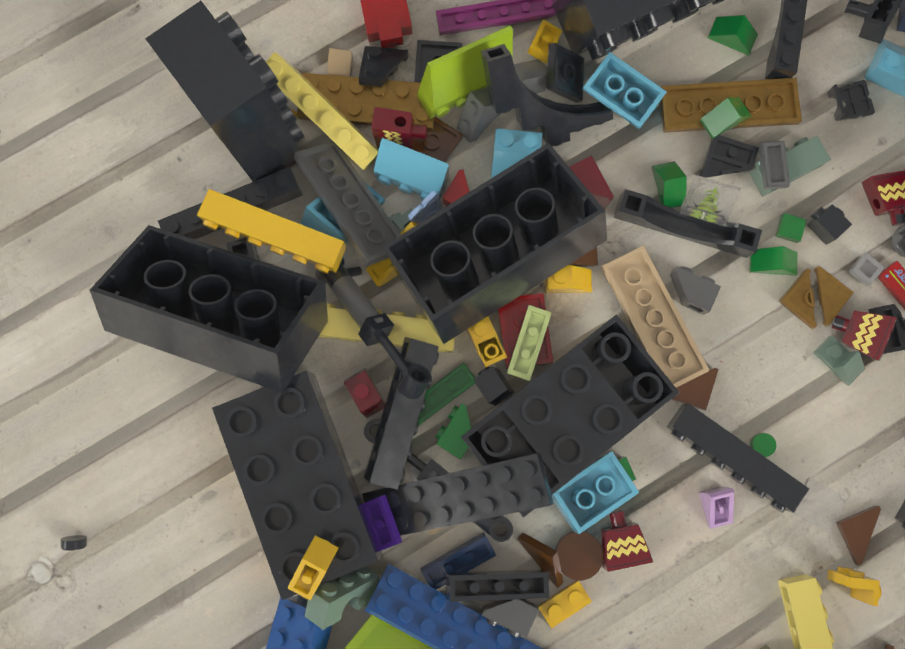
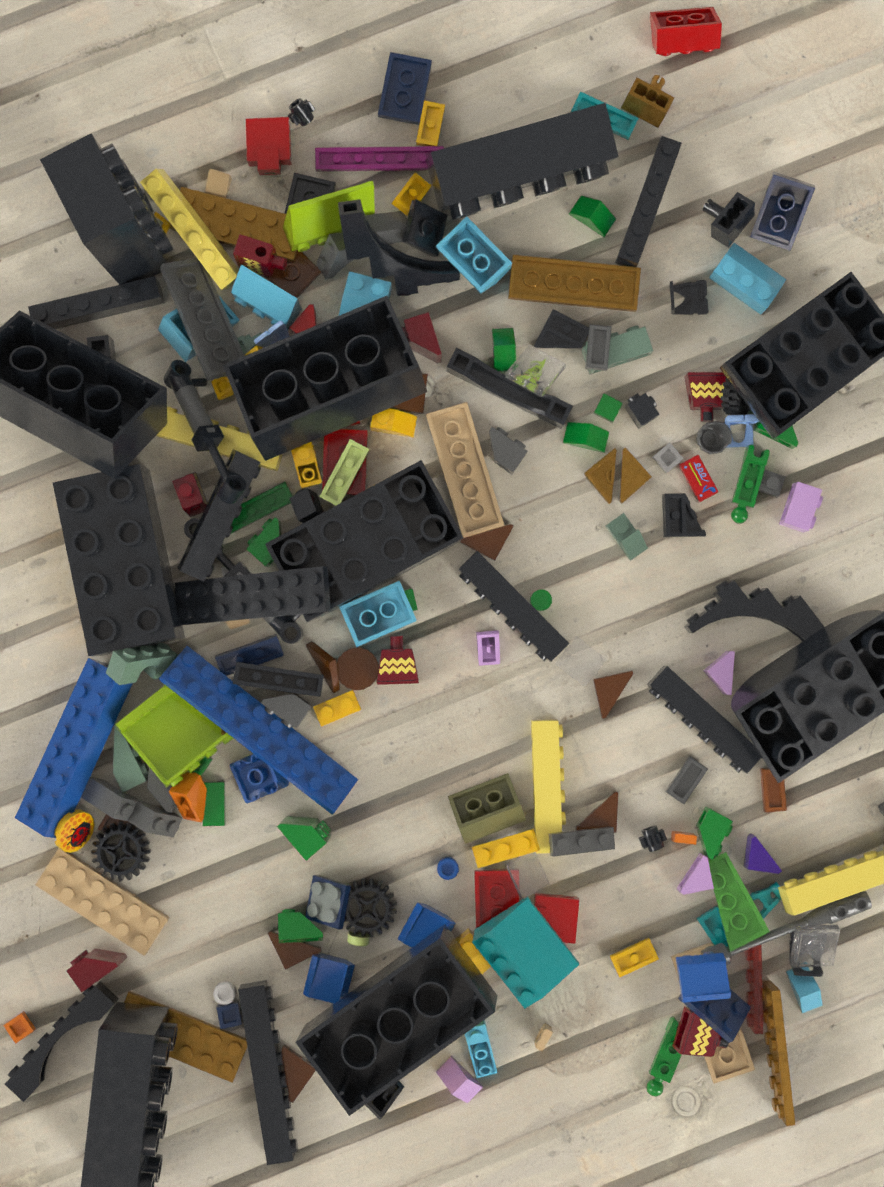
camera: 10 degrees right, 5 degrees up
(272, 231) = (129, 334): yellow brick -> none
(312, 567) = (117, 630): yellow slope -> none
(379, 64) = (254, 191): black wing -> none
(381, 523) = (185, 608): dark purple plate -> none
(725, 116) = (564, 294): slope -> none
(862, 587) = (590, 725): yellow bracket -> none
(866, 332) = (651, 515): dark red torso -> none

